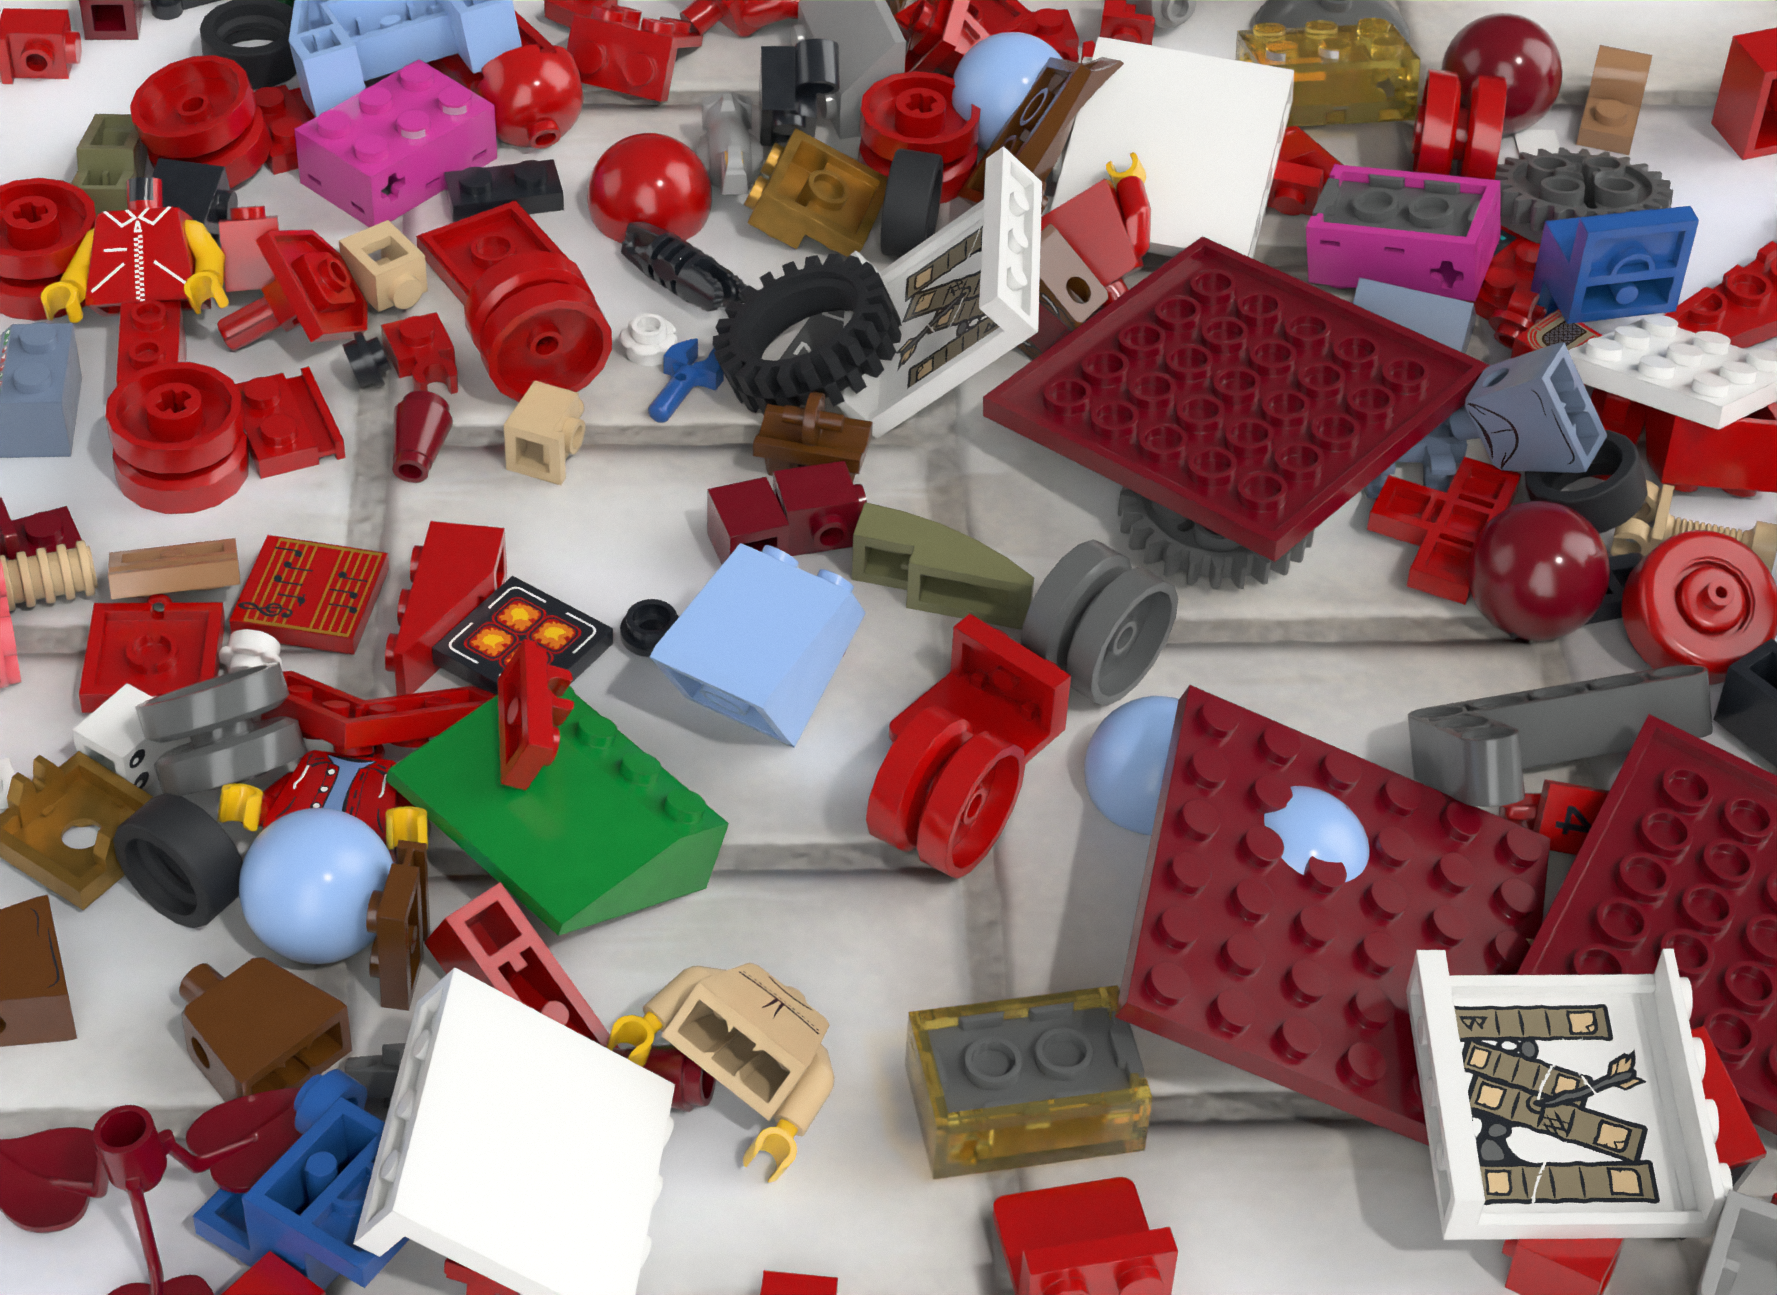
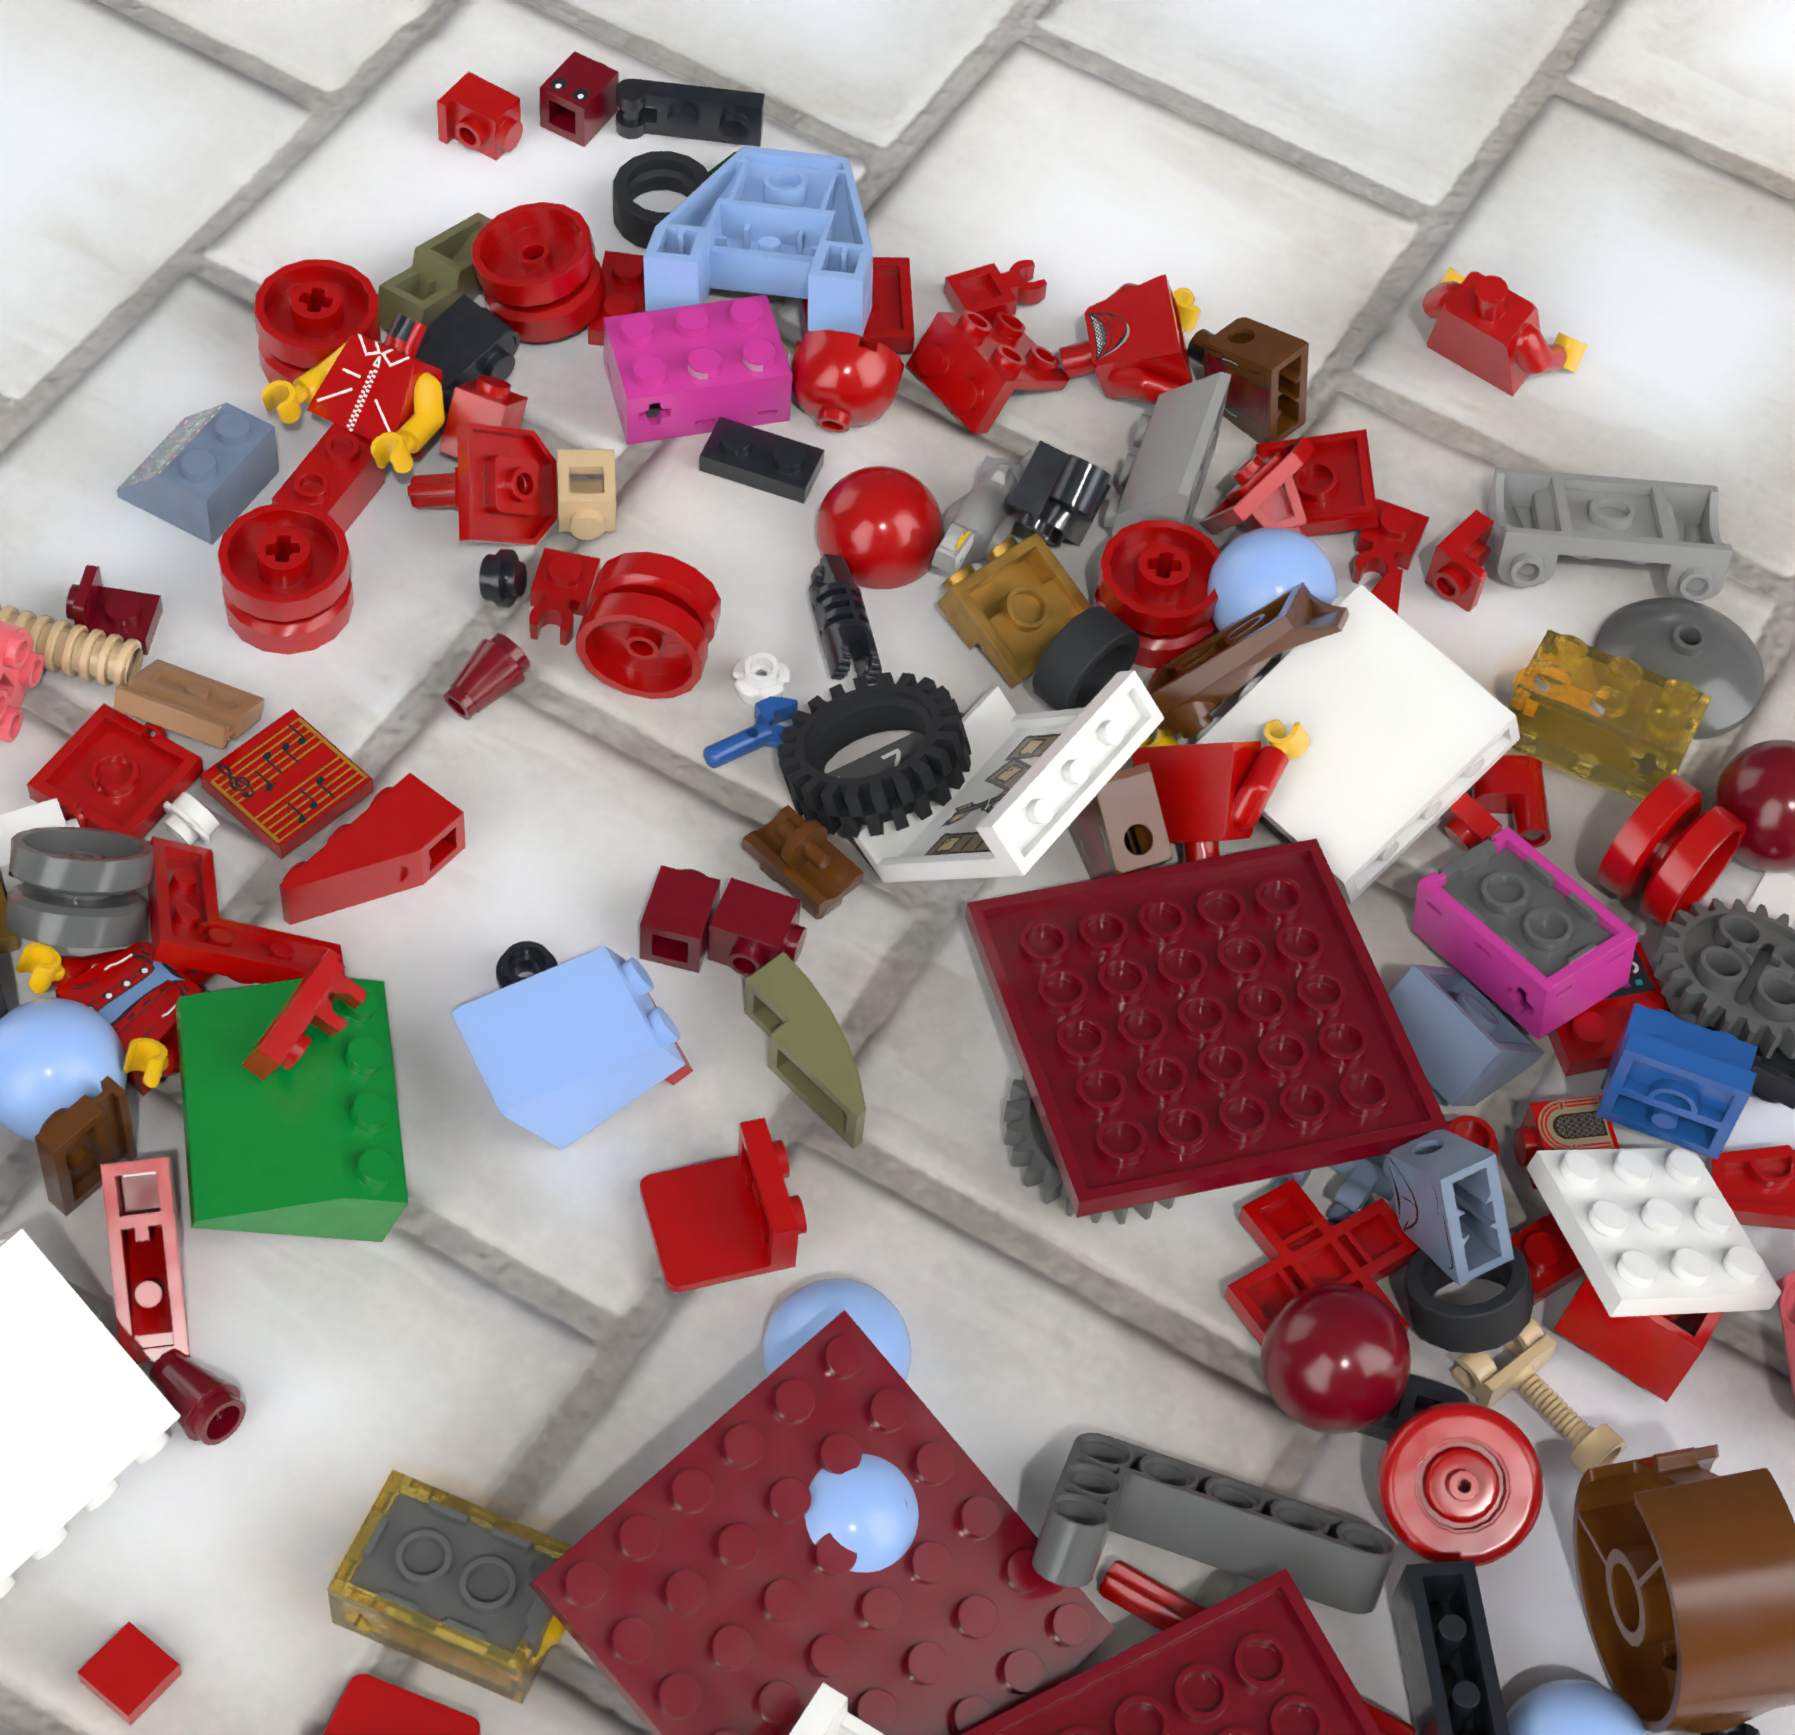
camera: 30 degrees right, 10 degrees up
(288, 423) = (397, 603): red plate -> none
(472, 245) = (703, 520): red tile -> none
(514, 612) = (408, 928): tile -> none
(544, 432) = (590, 727): tan brick -> none
(751, 1039) = (265, 1412): tan torso -> none
(945, 791) = (609, 1276): red wheel -> none
(1100, 621) = (881, 1186): dark grey wheel -> none
(1518, 317) = (1575, 1078): red plate -> none
(1567, 814) = (1147, 1612): red tile -> none

